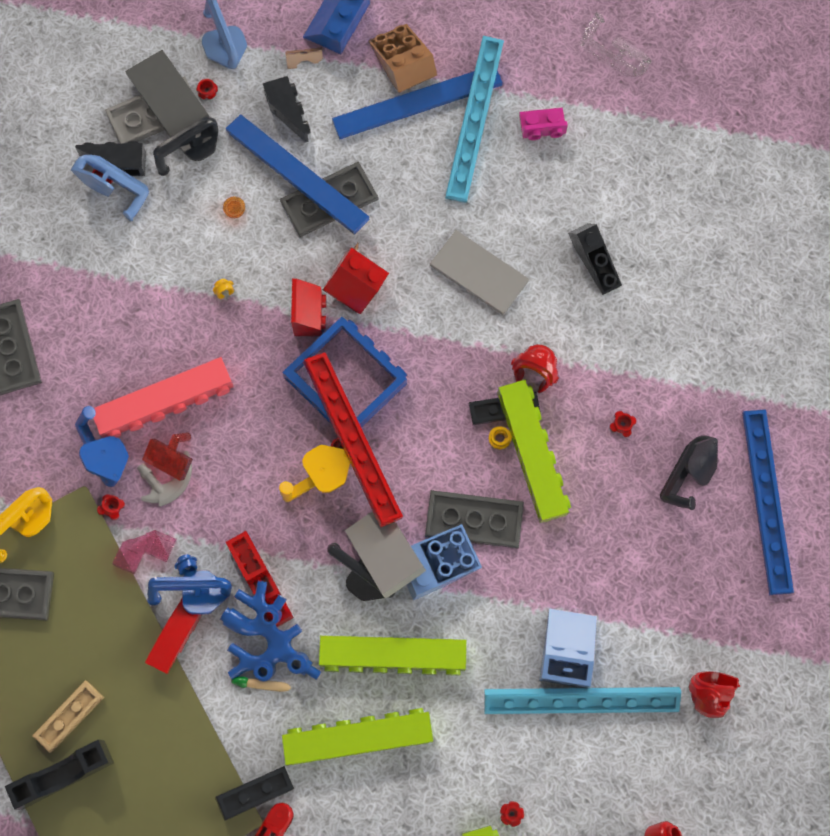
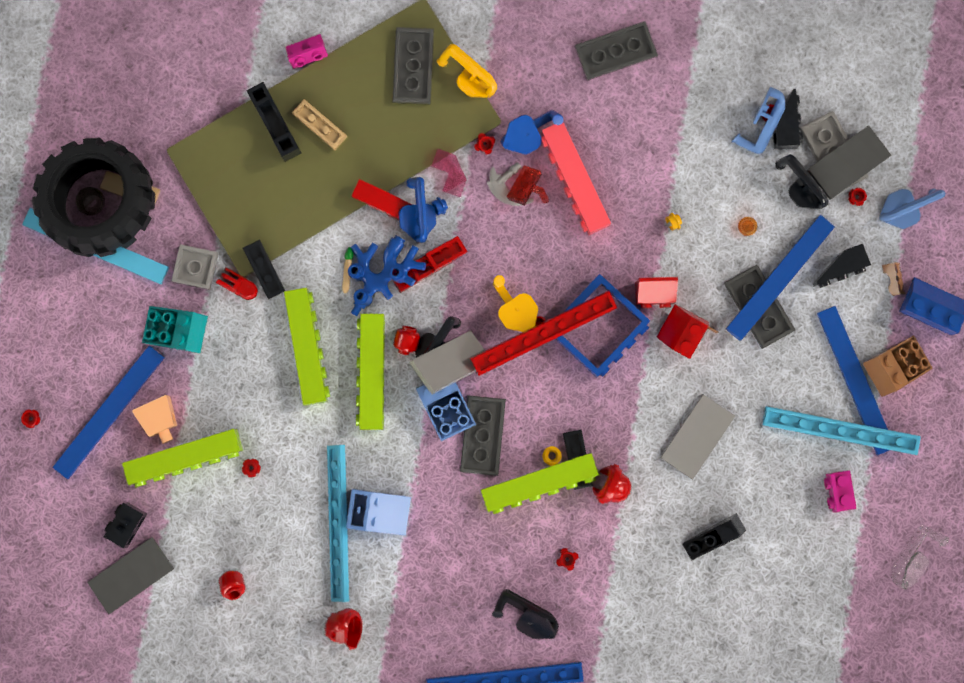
camera: 90 degrees right, 10 degrees up
(353, 609) = (406, 340): none -> red head

